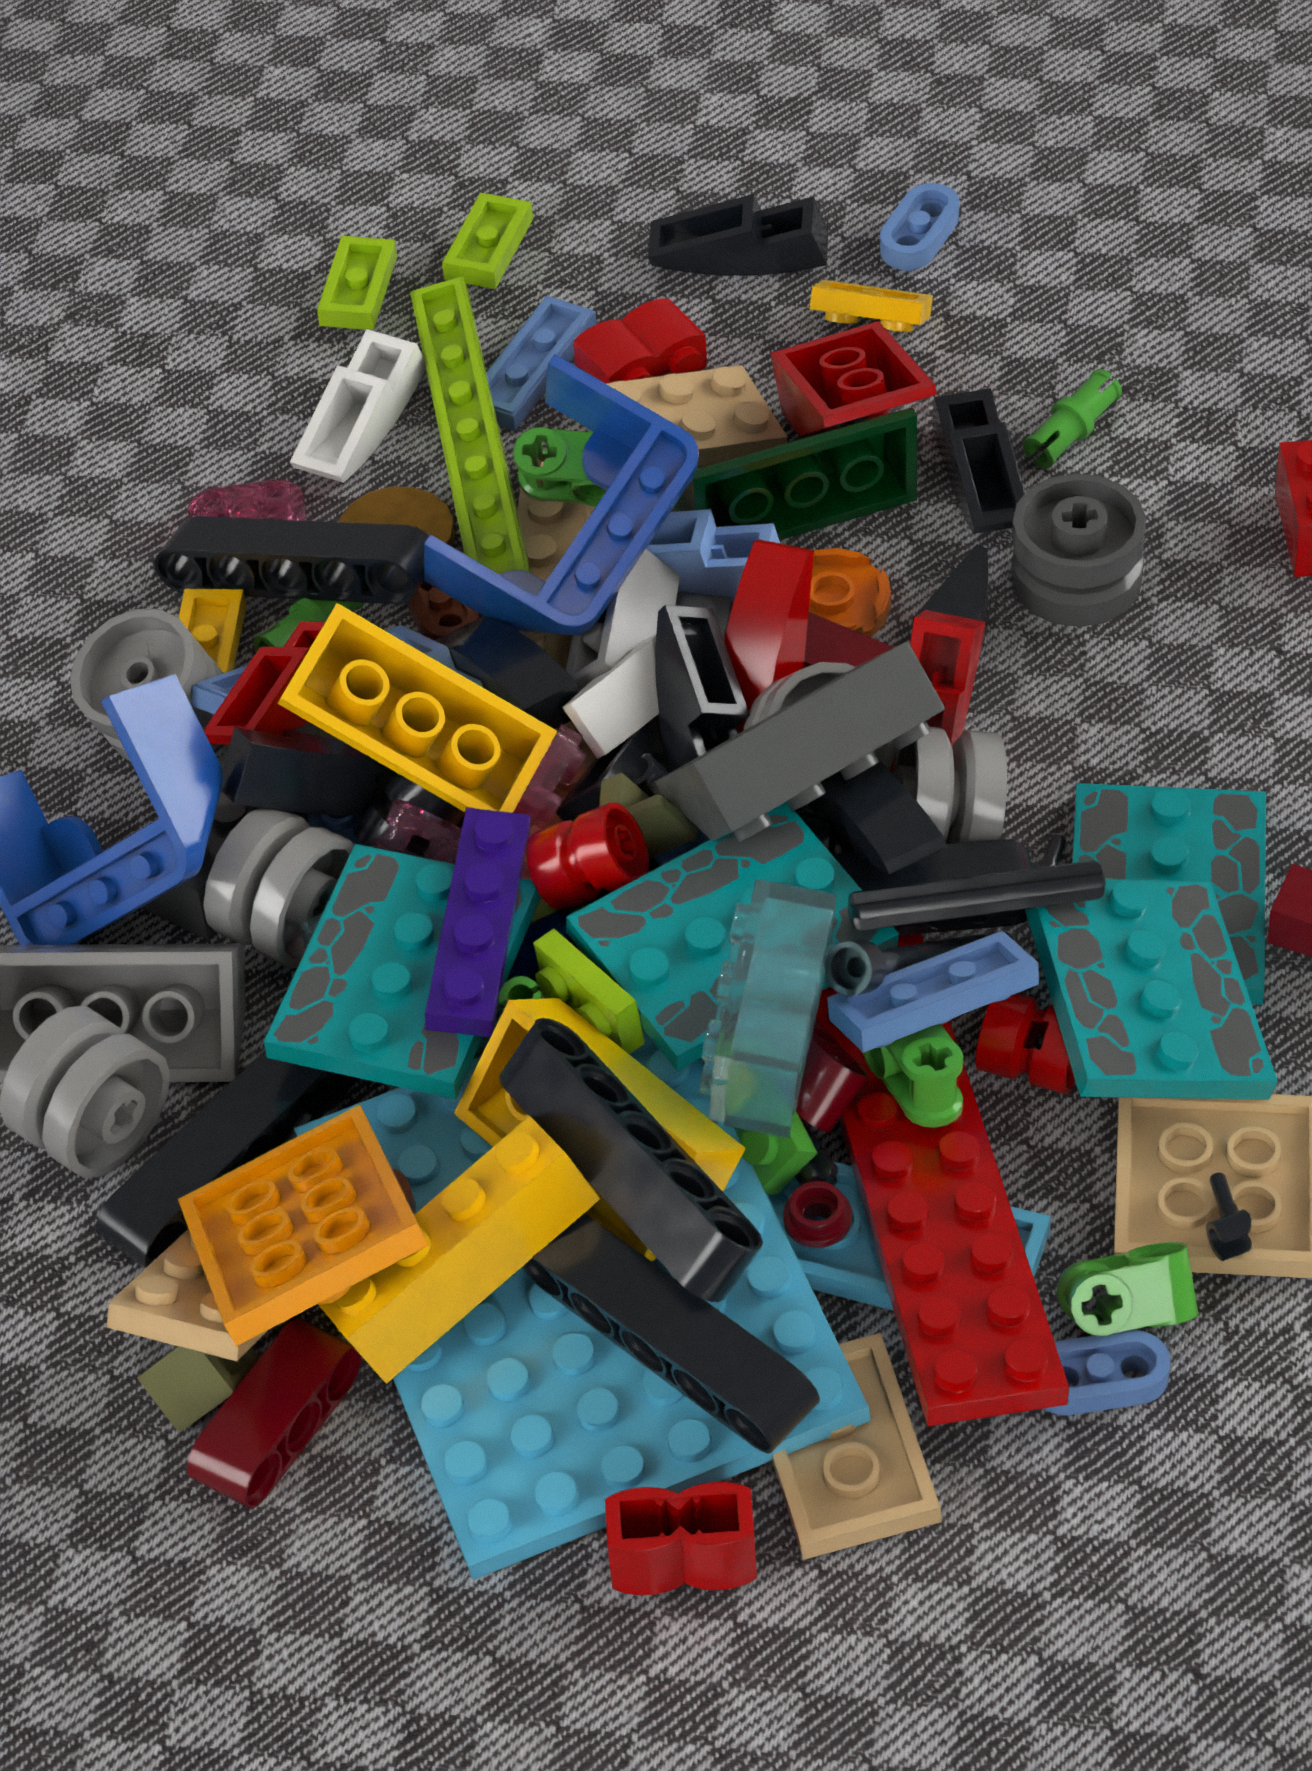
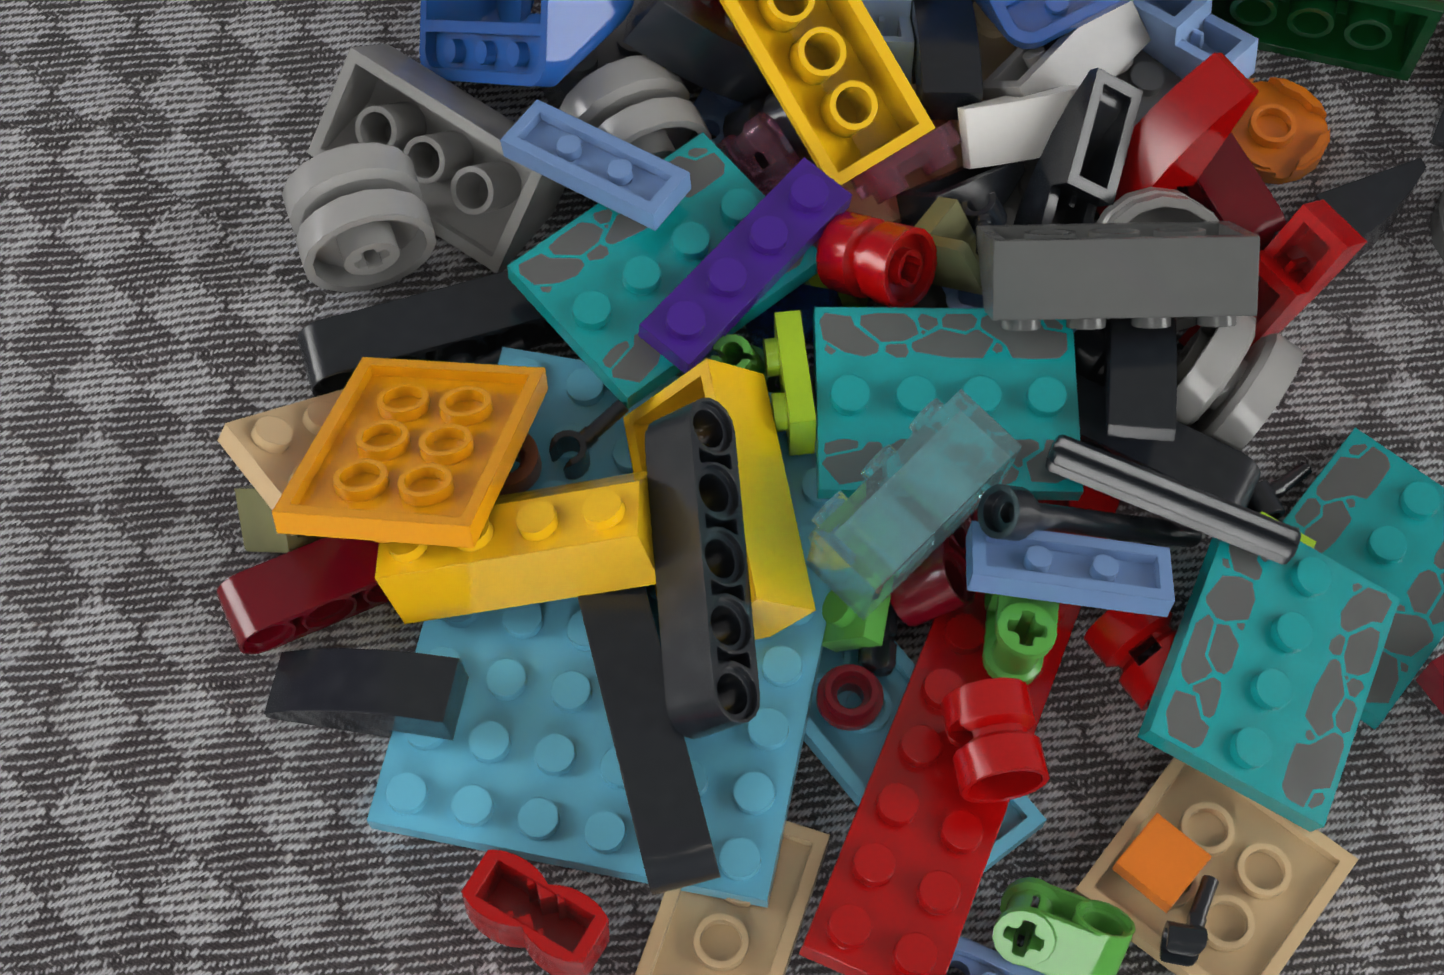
camera: 25 degrees right, 15 degrees up
(283, 914) = (596, 164): none -> medium blue plate
(390, 1461) = (369, 691): none -> black slope
(433, 1150) = (583, 440): none -> black hand
(969, 1157) = (995, 751): none -> red wheel
(1169, 1187) = (1161, 862): none -> orange tile

